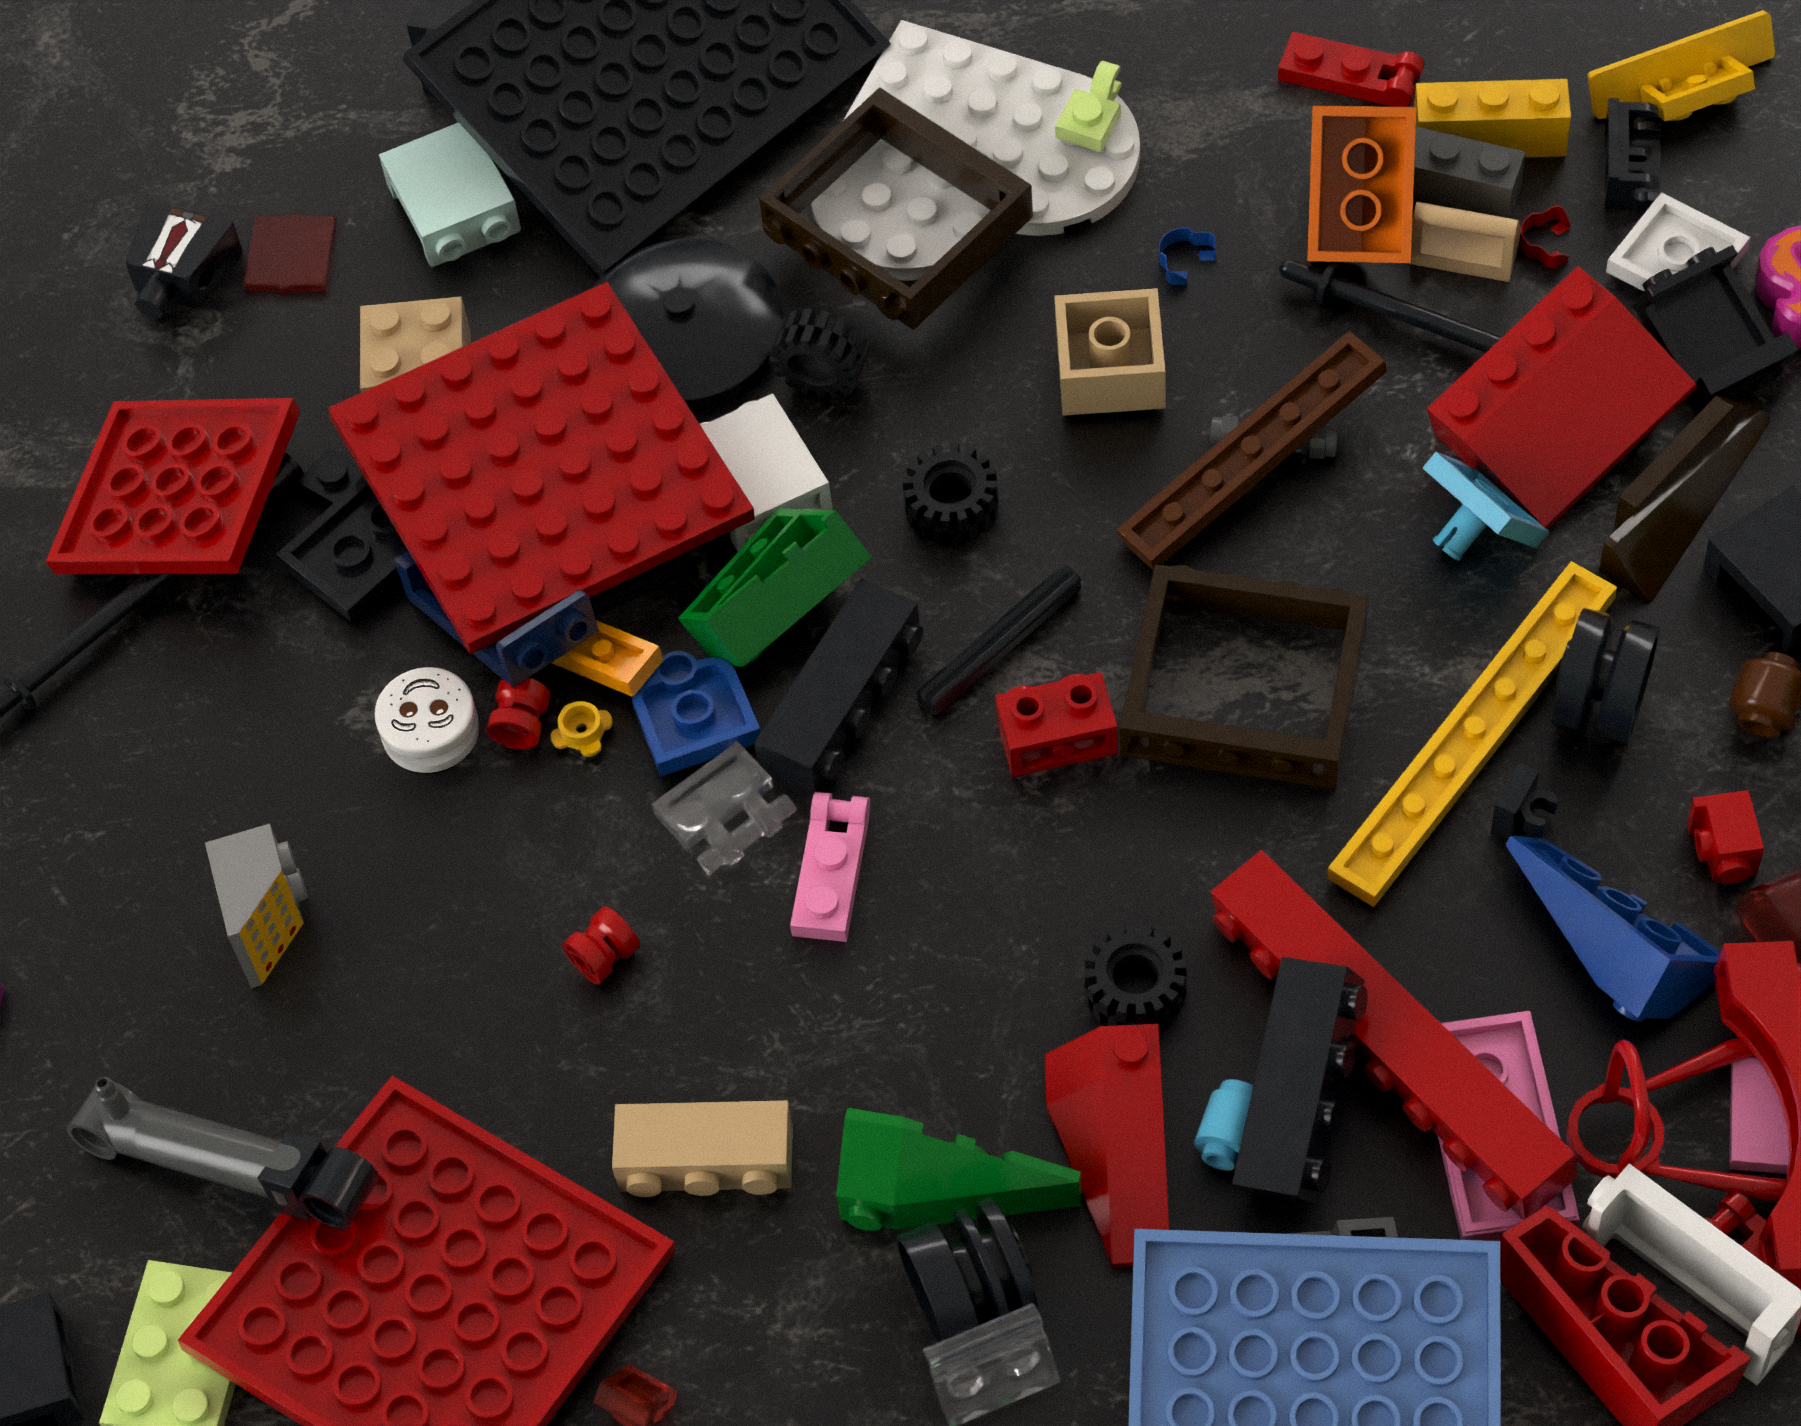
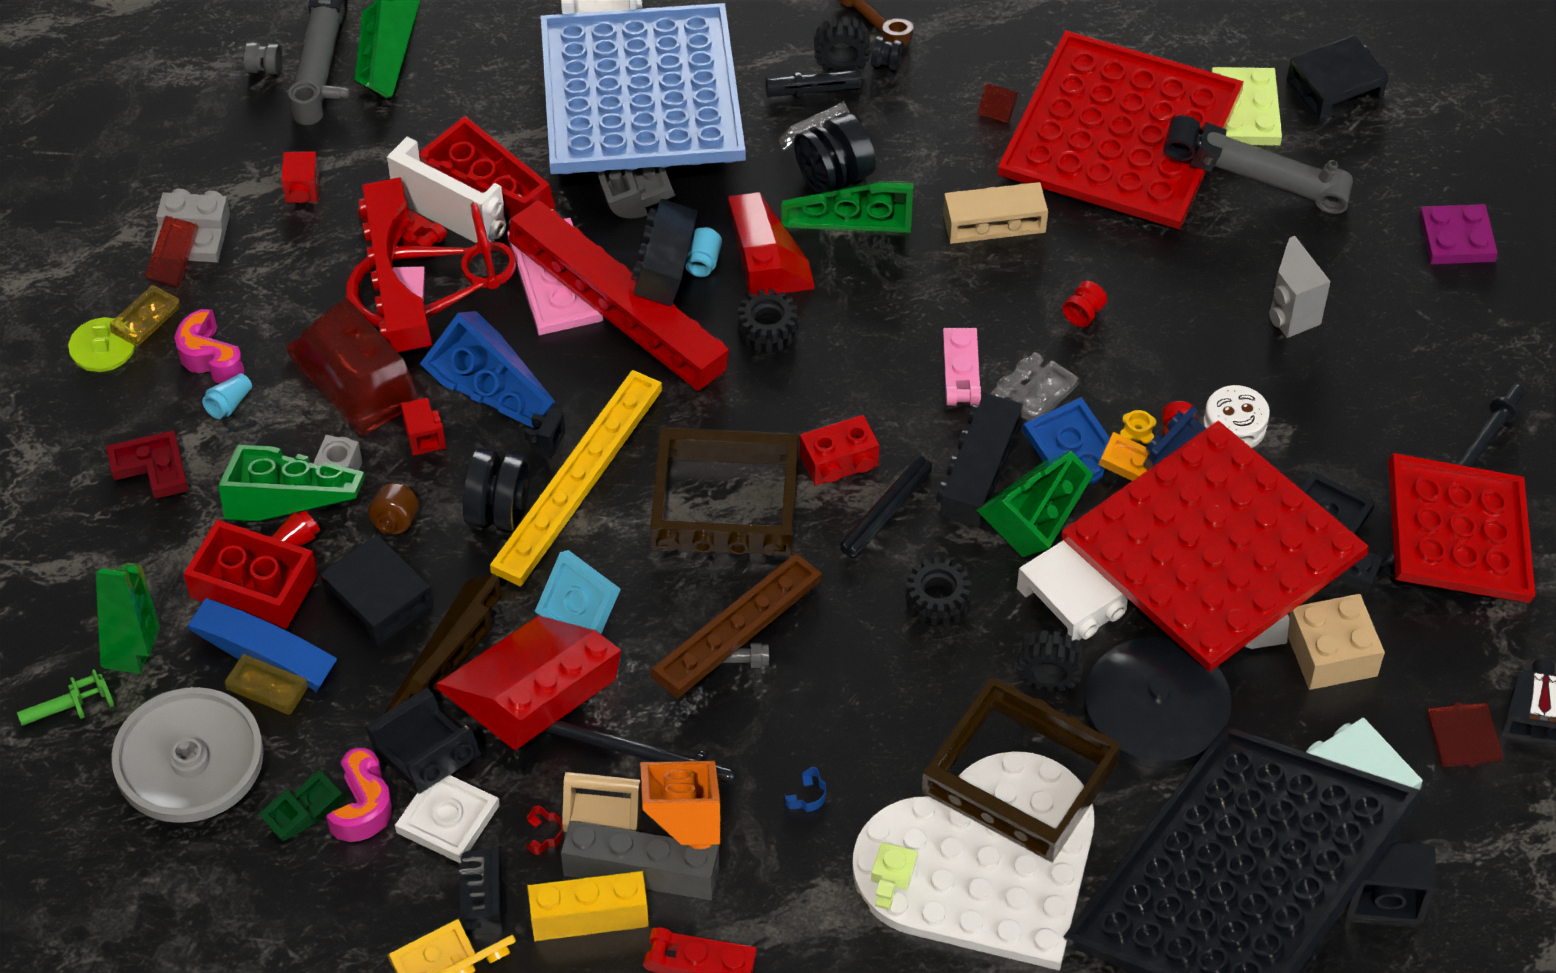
camera: 165 degrees right, 5 degrees down
(1110, 352) = (846, 685): tan brick -> none

